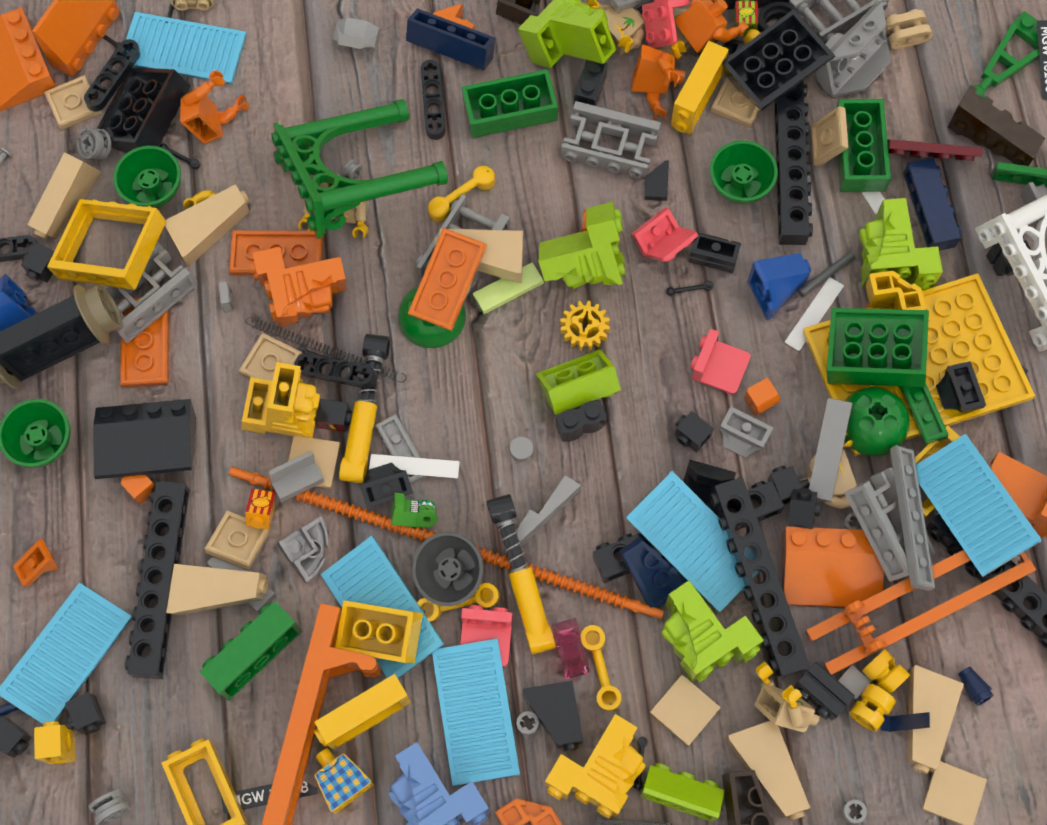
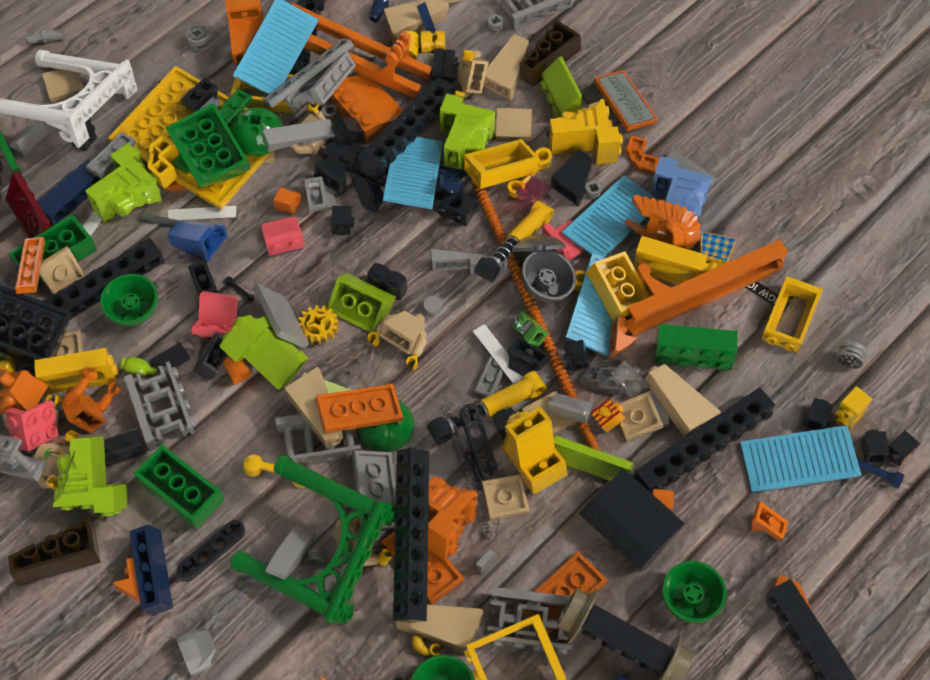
camera: 130 degrees left, 10 degrees down
(233, 460) = (590, 459): none -> lime panel
(283, 228) = (411, 536): none -> black brick
(285, 556) = (630, 379): none -> clear hips
(324, 586) = (619, 340): none -> orange slope
(345, 532) = (576, 355): none -> black brick
(367, 144) = (290, 552): none -> light grey slope
(372, 257) = (375, 477): none -> light grey tile
(398, 740) = (667, 222): none -> orange piece
(492, 588) = (538, 242): none -> flat silver brick
(507, 393) = (404, 332): none -> tan torso
(612, 286) = (281, 316): none -> light grey tile
(630, 212) = (210, 358): none -> black brick
(647, 643) = (478, 161): none -> yellow piece
(669, 147) = (135, 365): none -> lime plant
(758, 460) = (333, 173): none -> black slope
(844, 99) = (30, 265): none -> orange tile
(954, 272) = (102, 162): none -> light grey tile

